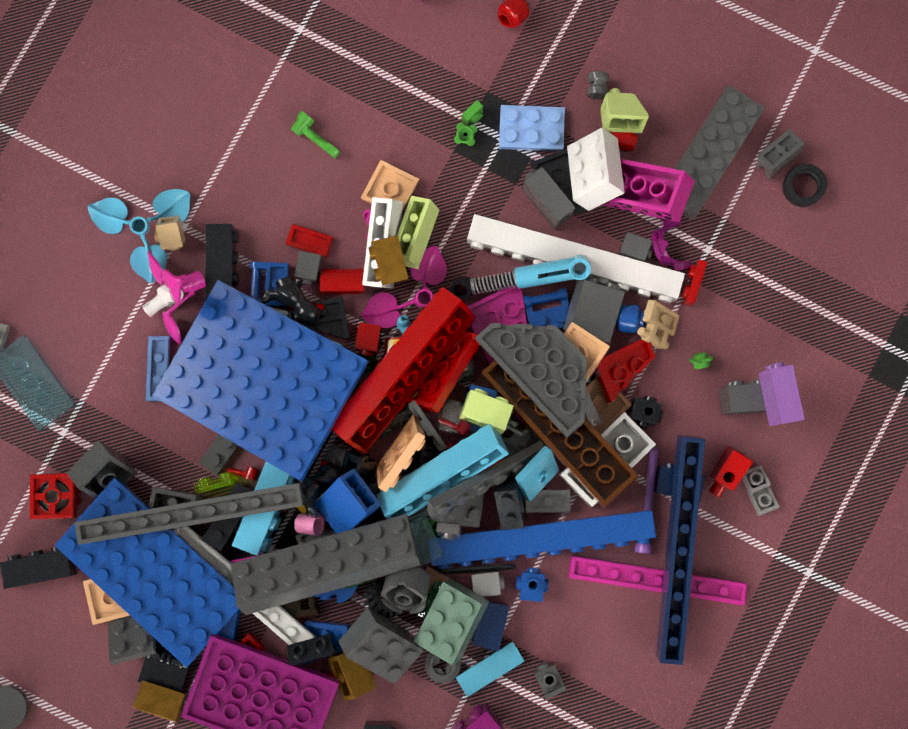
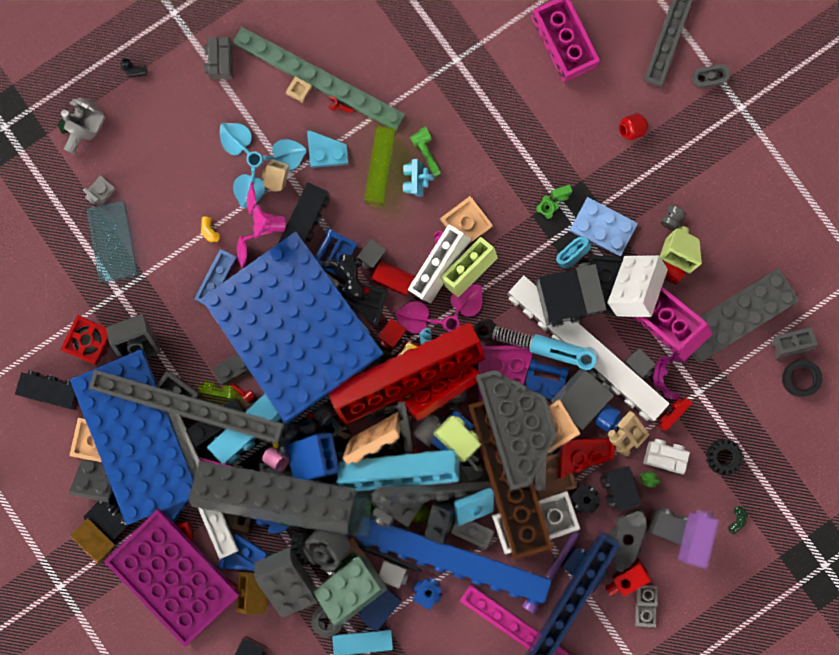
camera: 25 degrees right, 0 degrees up
(53, 140) = (219, 58): none -> dark grey brick
(127, 325) = (207, 232): none -> yellow arm
(152, 134) = (298, 89): none -> tan plate
(160, 301) = (244, 225): white arm -> none
(167, 114) = (318, 79): none -> sand green plate
(200, 132) = (337, 105): none -> red hand
(210, 184) = (326, 151): none -> medium azure wing
(273, 173) = (379, 166): none -> clear neon green brick
(309, 240) = (382, 233): red tile -> none
(310, 649) = (229, 558): black hinge -> none
(320, 166) = (419, 175): none -> medium azure hips
(389, 260) = (437, 281): pearl gold brick -> none
(463, 427) = (431, 442): dark red hand -> none
(489, 509) = (422, 515): none -> clear neon green plate
(514, 167) = (573, 252): none -> medium azure plate
(523, 218) = (561, 298): none -> black brick
(676, 383) = (620, 488): none -> black brick
(708, 329) = (666, 457): none -> white brick
(709, 413) = (634, 524): none -> dark grey piece
(778, 298) = (736, 454): none -> black tyre
(812, 358) = (741, 520): none -> clear green arm

